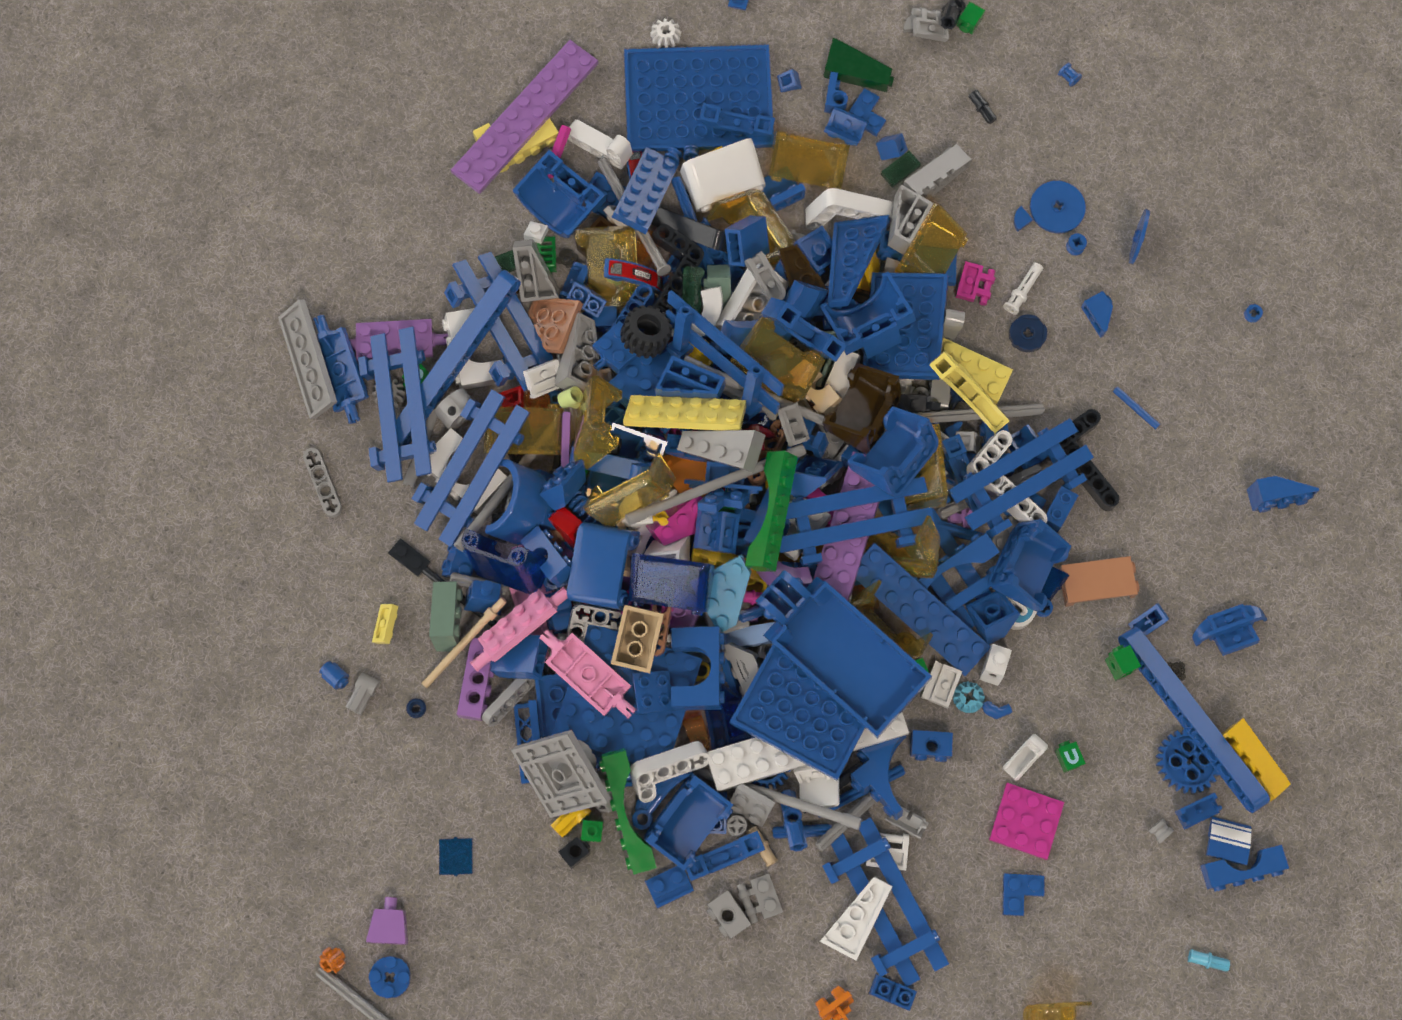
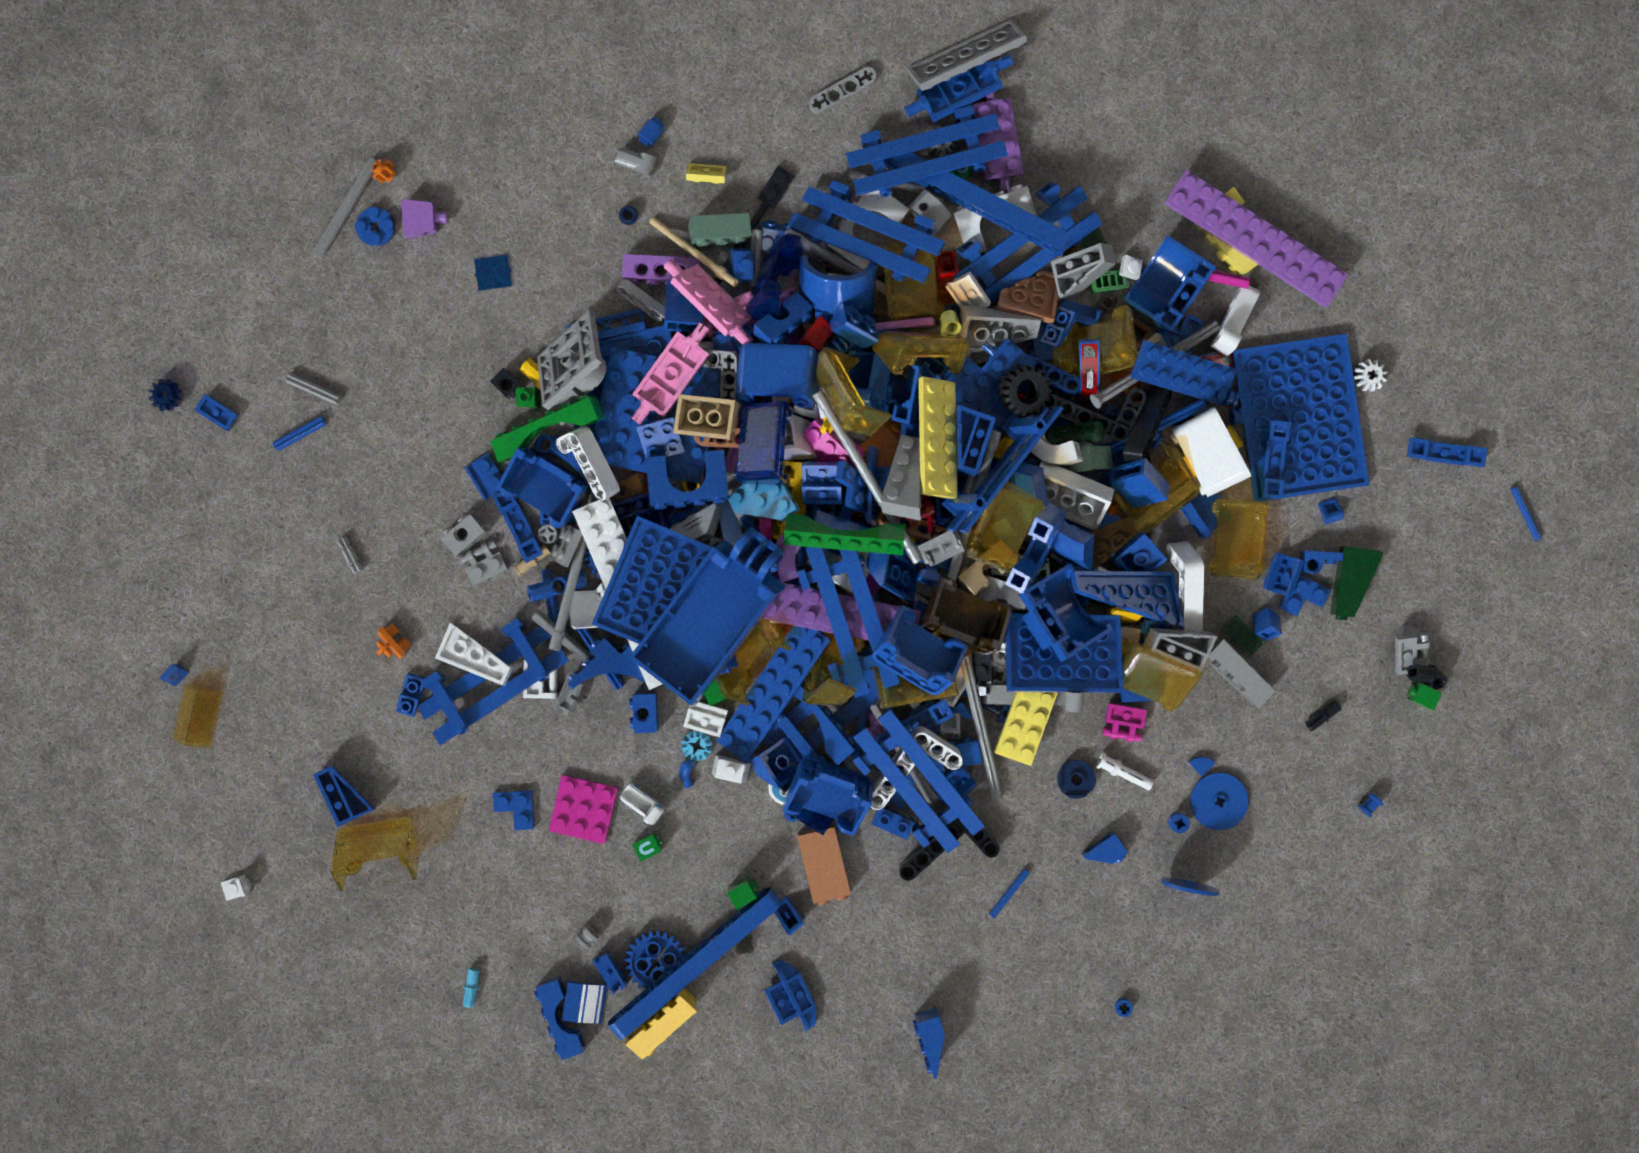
camera: 85 degrees right, 15 degrees up
(766, 277) = (1092, 505): light grey plate -> none
(969, 390) = (1004, 717): light yellow arch -> none

